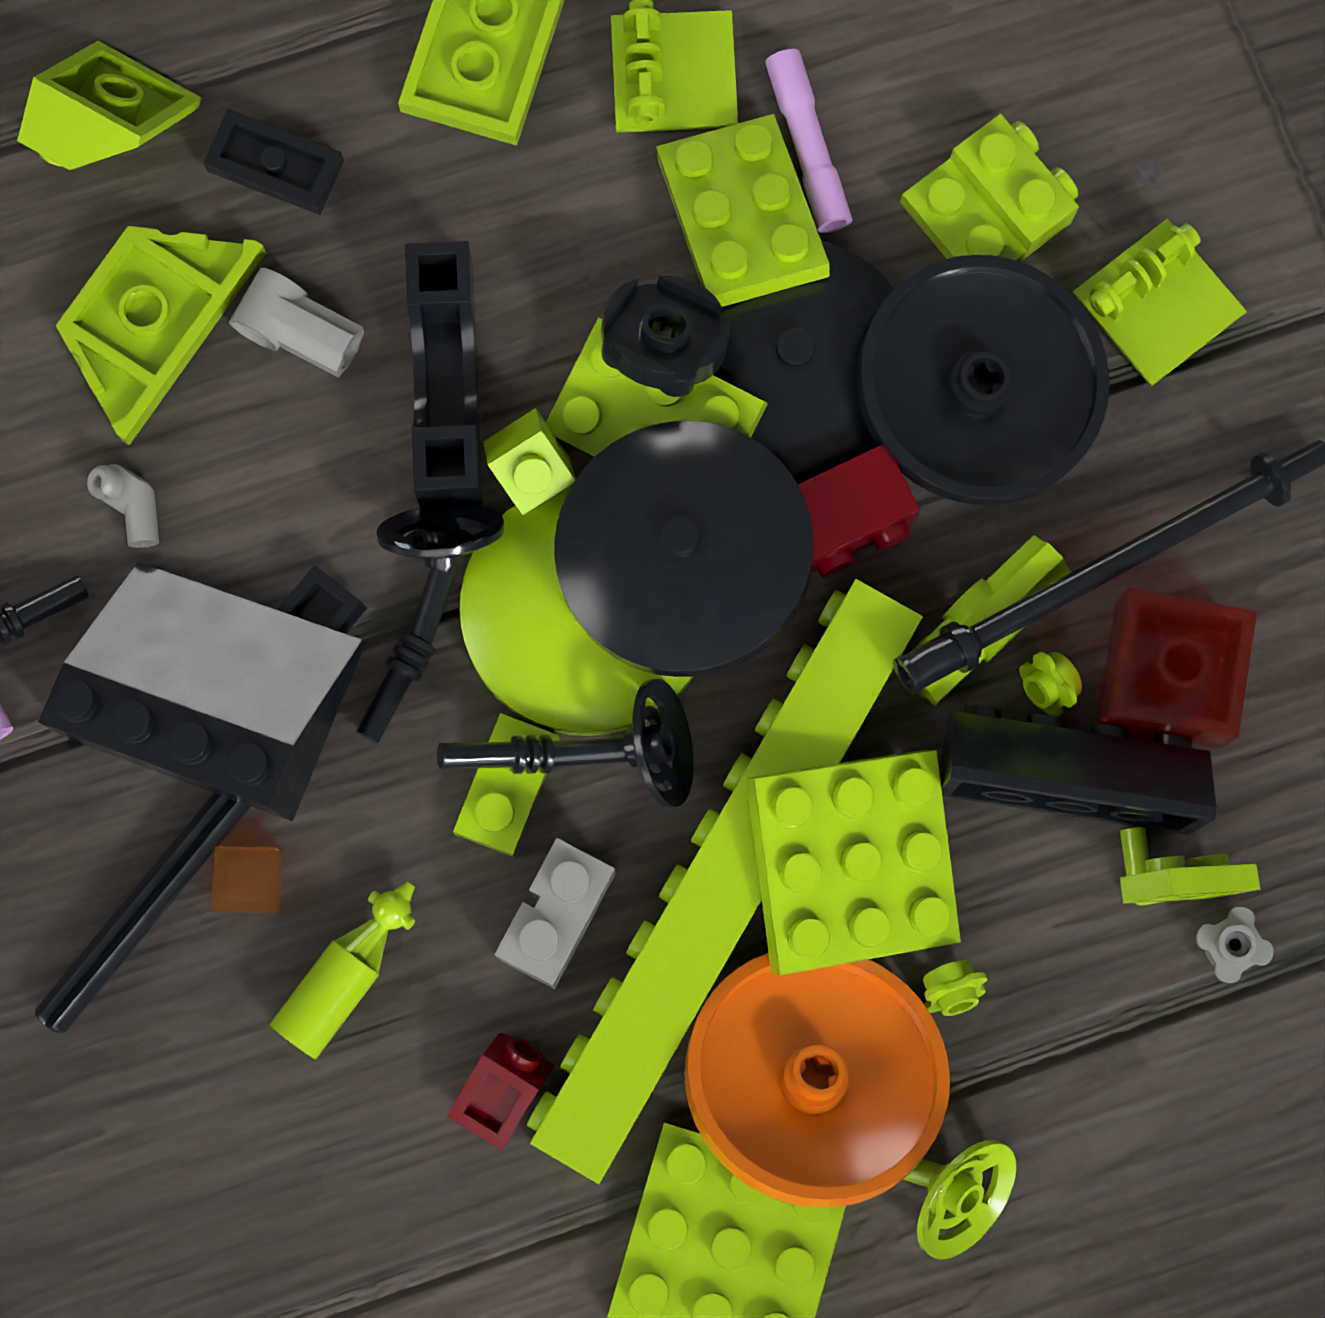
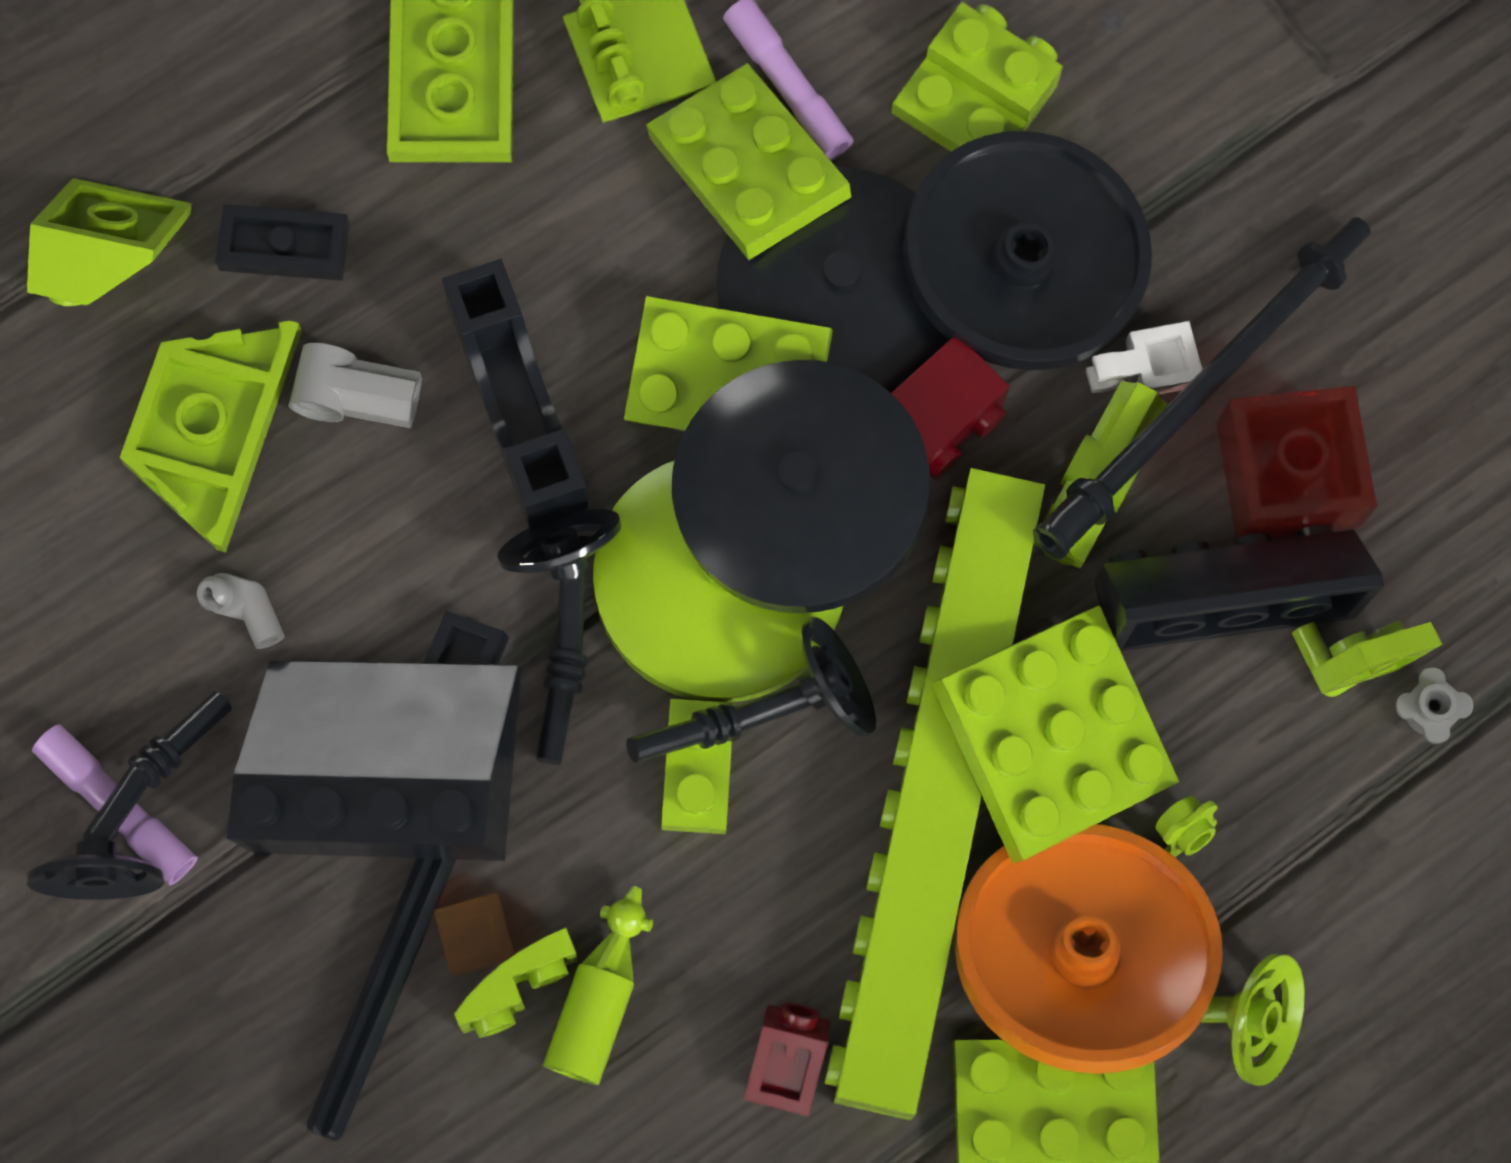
camera: 20 degrees left, 5 degrees down
(251, 945) = (497, 998): none -> lime slope
(529, 461) = (624, 450): lime brick -> none
(568, 896) = (787, 872): light grey piece -> none
(661, 362) = (713, 318): black plate -> none
(1051, 682) = (1182, 512): lime plate -> none
(1077, 524) = (1156, 357): none -> white plate
(1160, 301) = (1164, 132): lime hinge -> none

